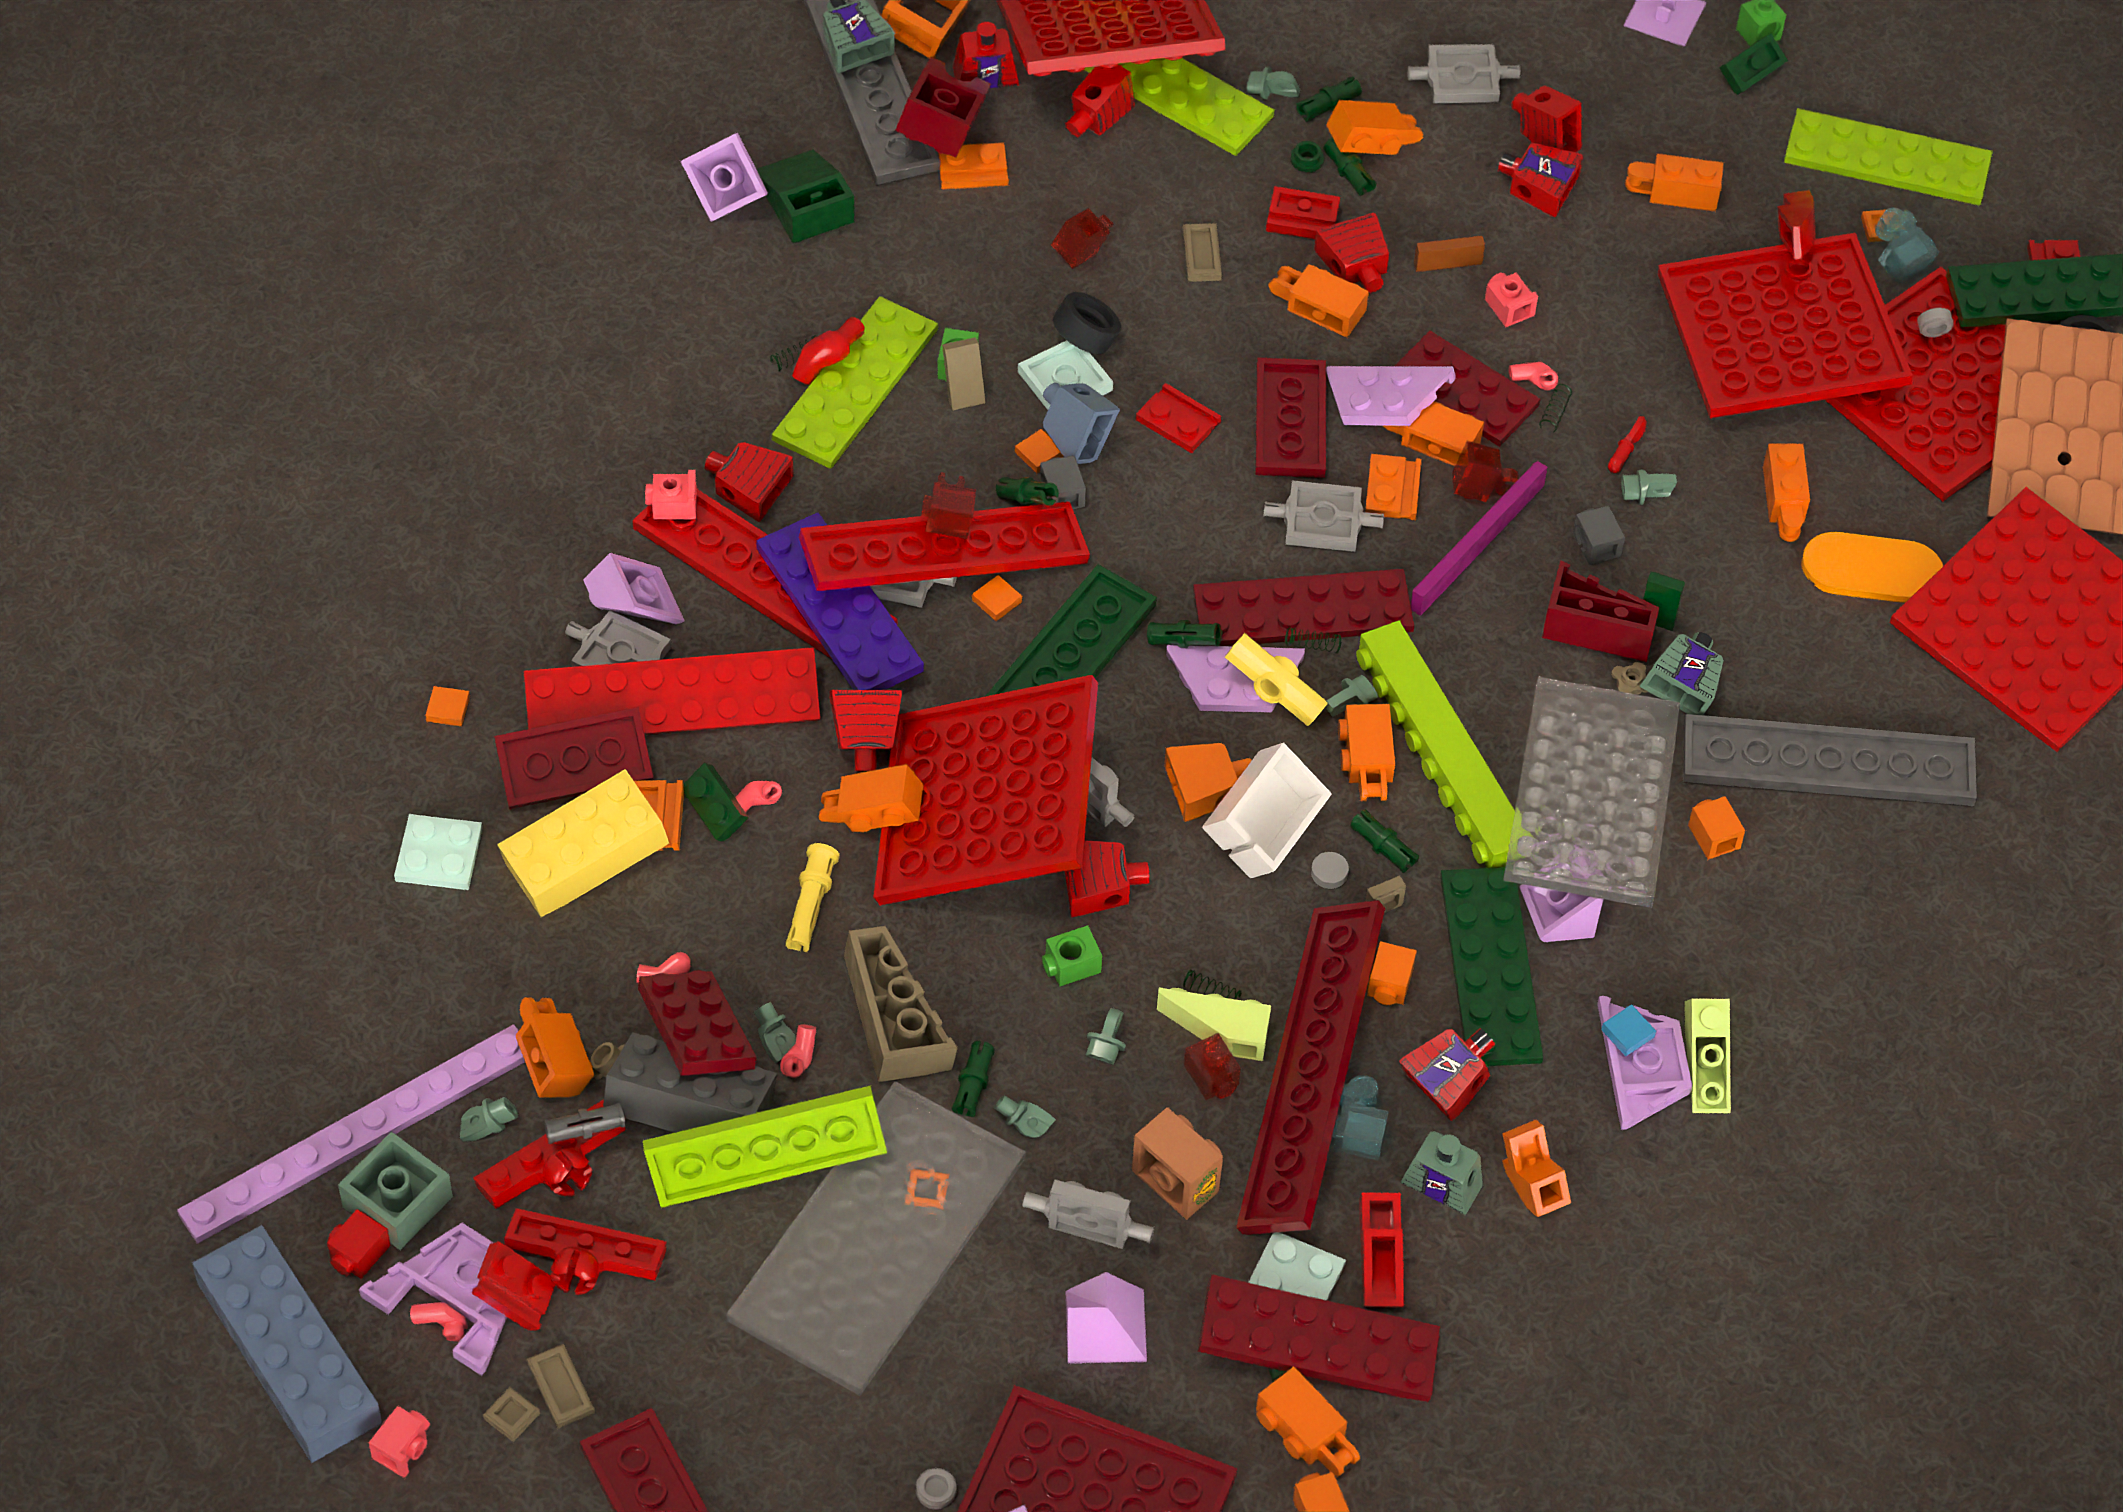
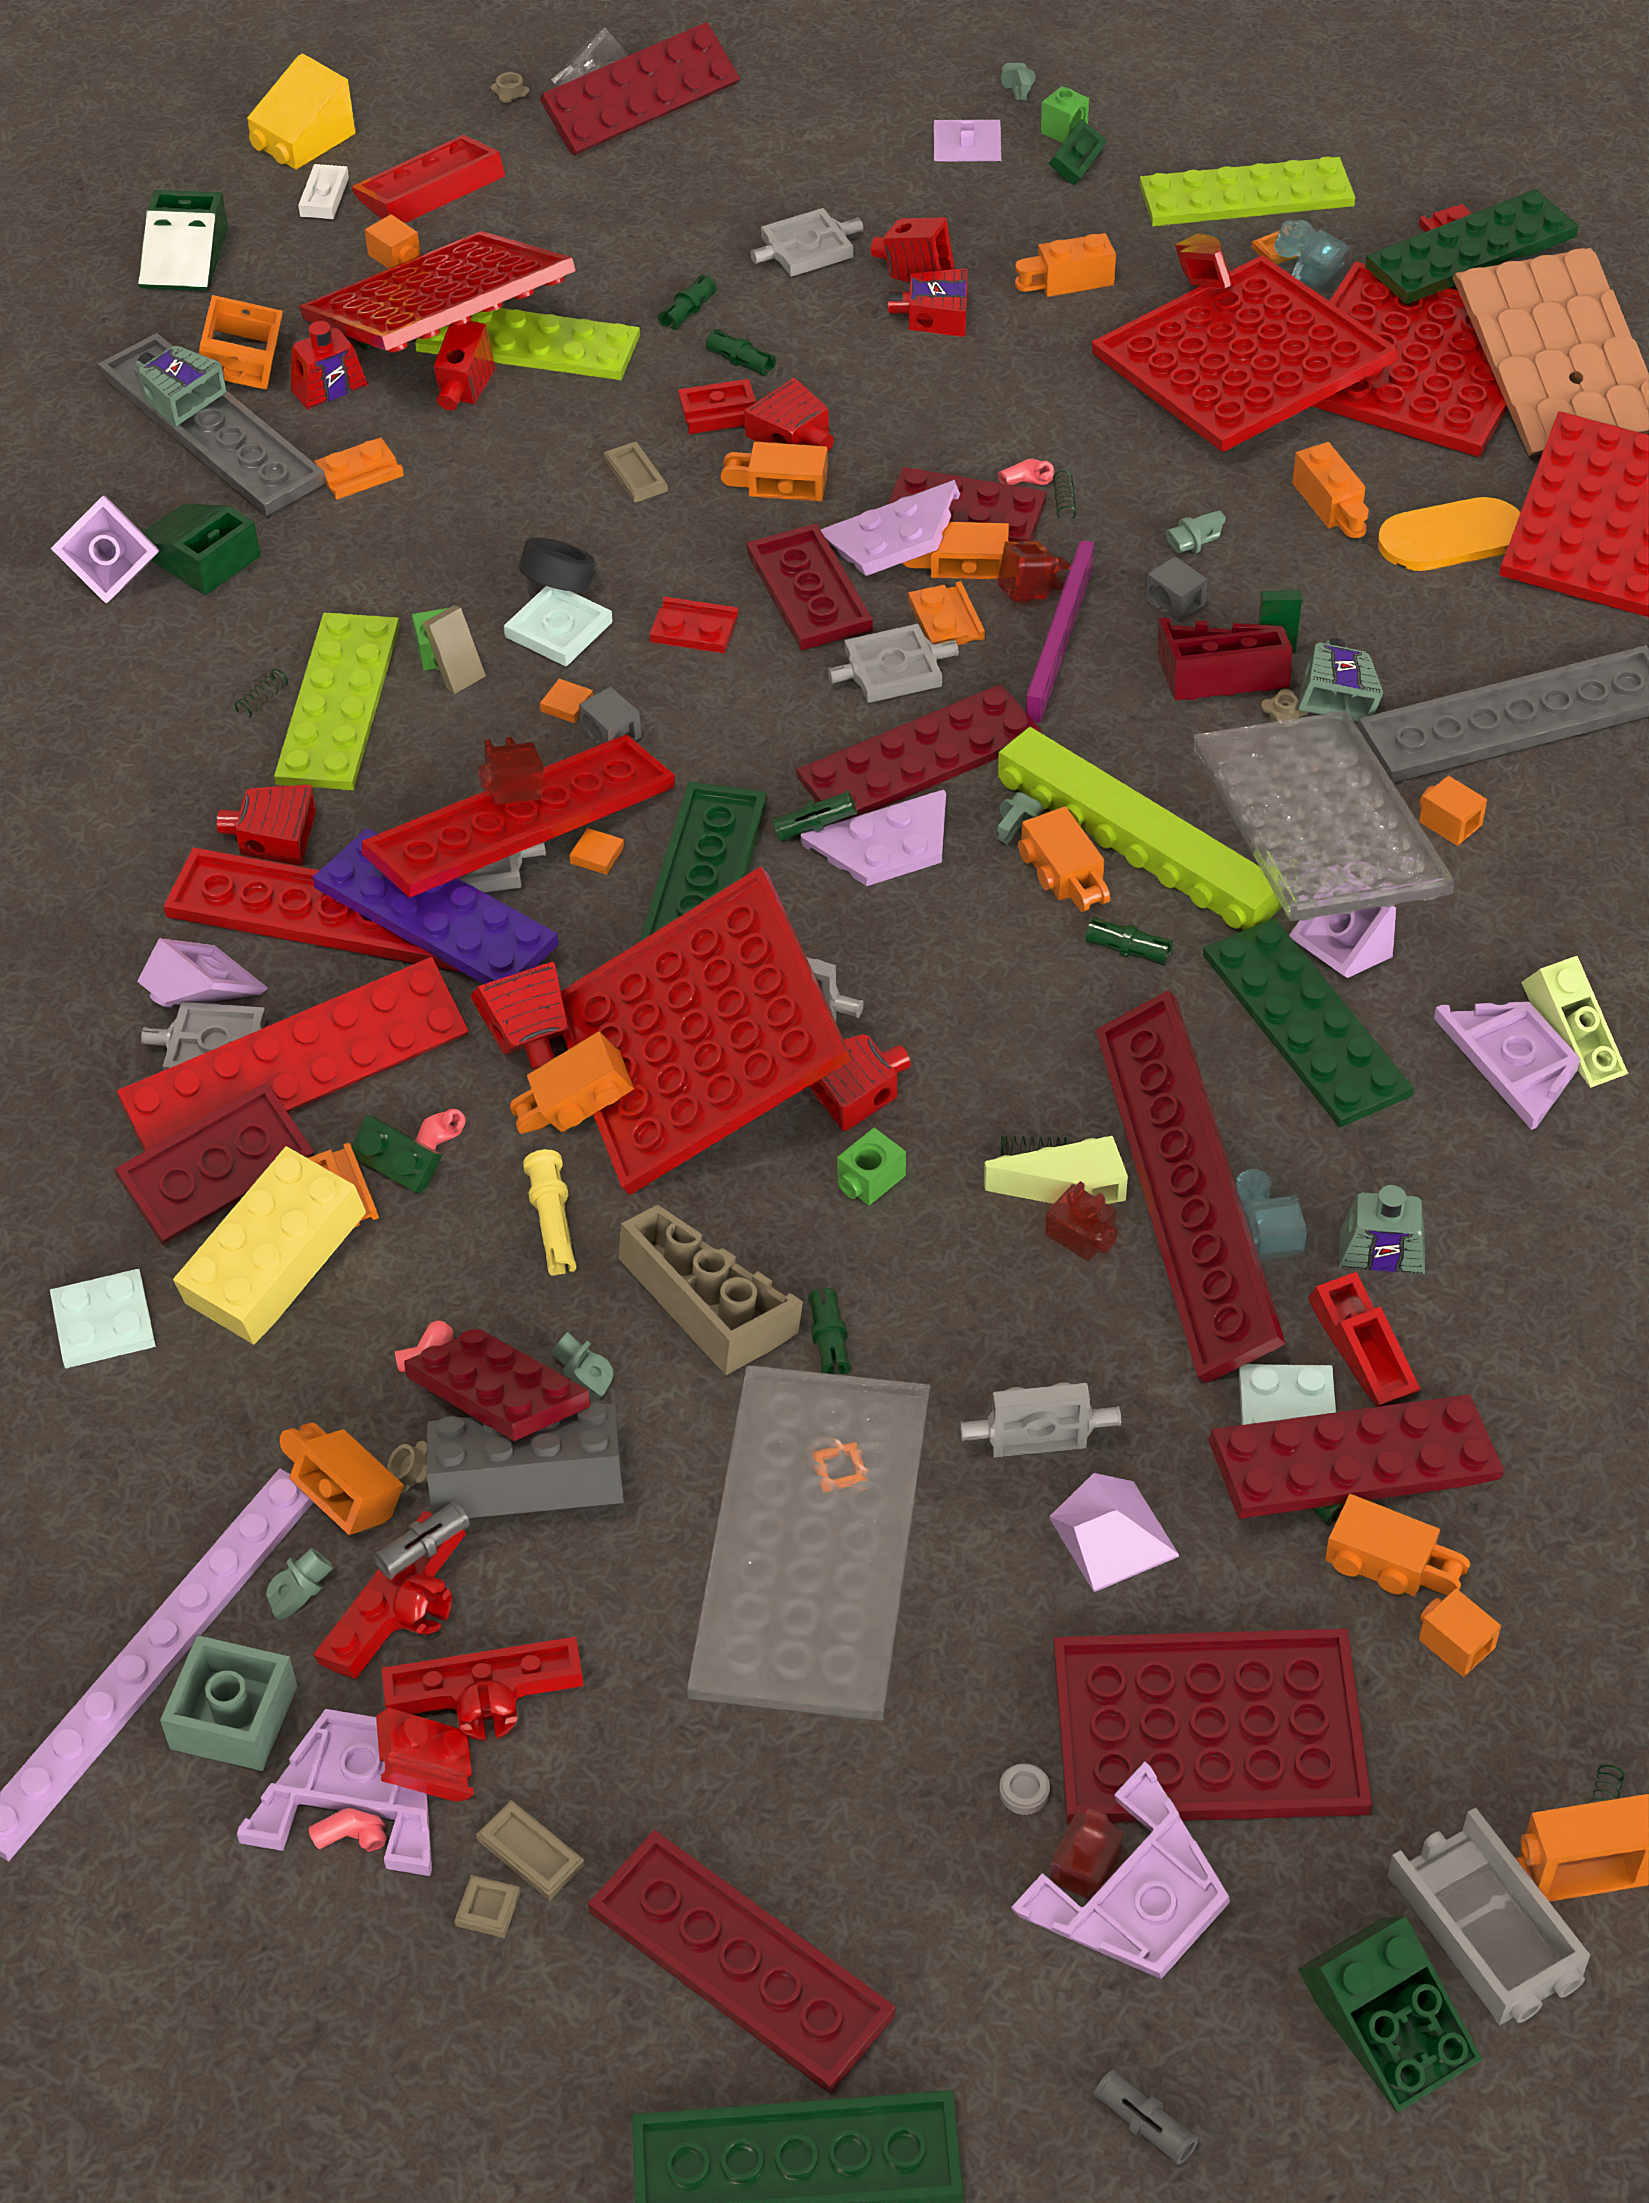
camera: 20 degrees left, 5 degrees down
(287, 1343) = (177, 1933): sand blue brick -> none
(357, 1244) = (210, 1783): red brick -> none
(399, 1440) = (369, 1991): coral brick -> none
(447, 706) = (41, 1163): orange tile -> none
(672, 495) = (199, 864): coral brick -> none
(765, 1146) = (643, 1485): lime plate -> none
(801, 1053) = (624, 1379): coral arm -> none
(827, 350) = (295, 675): red arm -> none
(942, 109) = (305, 420): dark red brick -> none
(1025, 1116) = (906, 1348): sand green piece -> none
(1027, 491) = (578, 736): dark green pin -> none
(1078, 420) = (597, 652): sand blue torso -> none
(1082, 237) = (508, 492): clear red brick -> none
(1104, 1045) = (951, 1245): sand green piece -> none
(1177, 1162) = (1105, 1330): nougat brick -> none
(1201, 776) = (911, 944): orange torso -> none
(1267, 82) = (629, 303): sand green piece -> none
(1267, 810) = (1000, 948): white piece -> none
(1276, 679) = (936, 823): light yellow piece -> none
(1292, 640) = (930, 782): dark green piece -> none
(1307, 149) = (694, 356): dark green plate -> none
(1329, 870) = (1089, 988): light grey tile -> none
(1372, 127) = (746, 309): orange brick -> none
(1389, 893) = (1169, 979): dark tan tile -> none
(1391, 974) = (1217, 1061): orange brick -> none
(1449, 253) = (884, 394): dark orange tile -> none
(1449, 1069) = (1329, 1132): torso -> none
(1510, 298) = (966, 414): coral brick -> none
(1532, 1171) = (1477, 1206): orange brick -> none
(1626, 446) = (1153, 505): red piece -> none
(1628, 1030) = (1488, 1027): dark azure tile -> none
(1935, 322) = (1384, 303): light grey tile -> none

